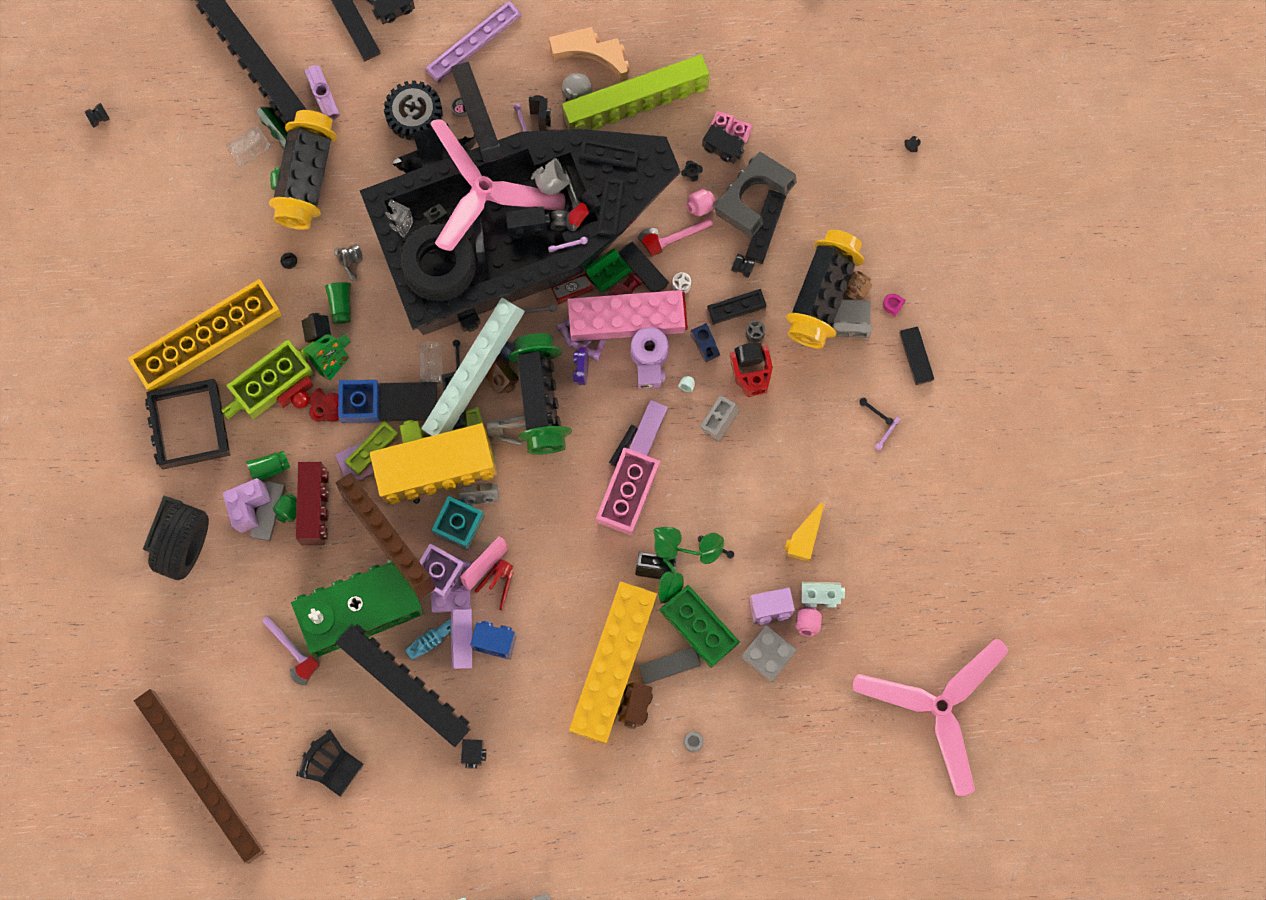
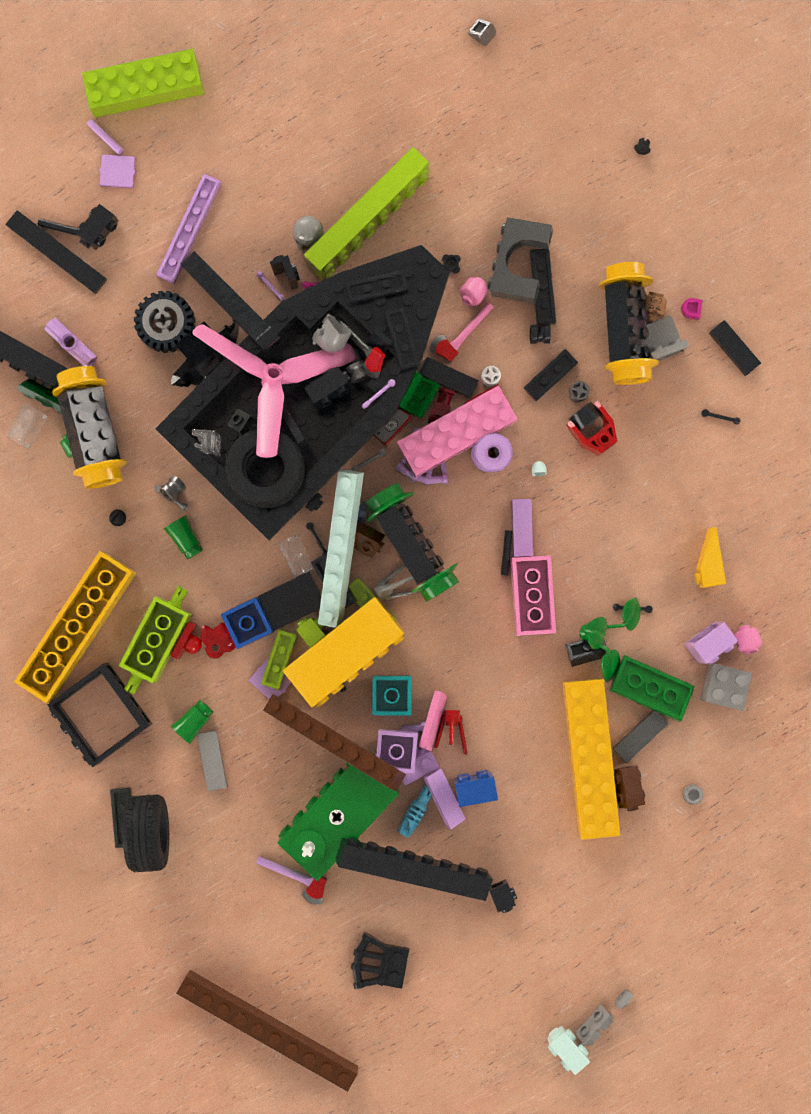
camera: 25 degrees left, 10 degrees up
(242, 501) = (186, 769): lavender brick -> none
(286, 508) = (229, 751): green head -> none
(311, 503) = (250, 739): dark red brick -> none
(315, 327) = (174, 571): black brick -> none
(328, 354) = (198, 592): green torso -> none
(458, 107) = (205, 299): tile -> none
(487, 494) = (390, 663): light grey hinge -> none
(582, 359) = (438, 502): dark purple tile -> none
(586, 45) = (297, 185): light nougat arch -> none
(650, 376) = (503, 478): lavender brick -> none
(705, 342) = (538, 423): dark blue leg -> none
(719, 418) = (583, 488): light grey hinge -> none
(723, 144) = (470, 225): black brick -> none
(732, 126) = (468, 205): bright pink slope -> none
(822, 593) = (749, 609): light aqua brick -> none
(879, 446) = (738, 448): lavender hinge -> none

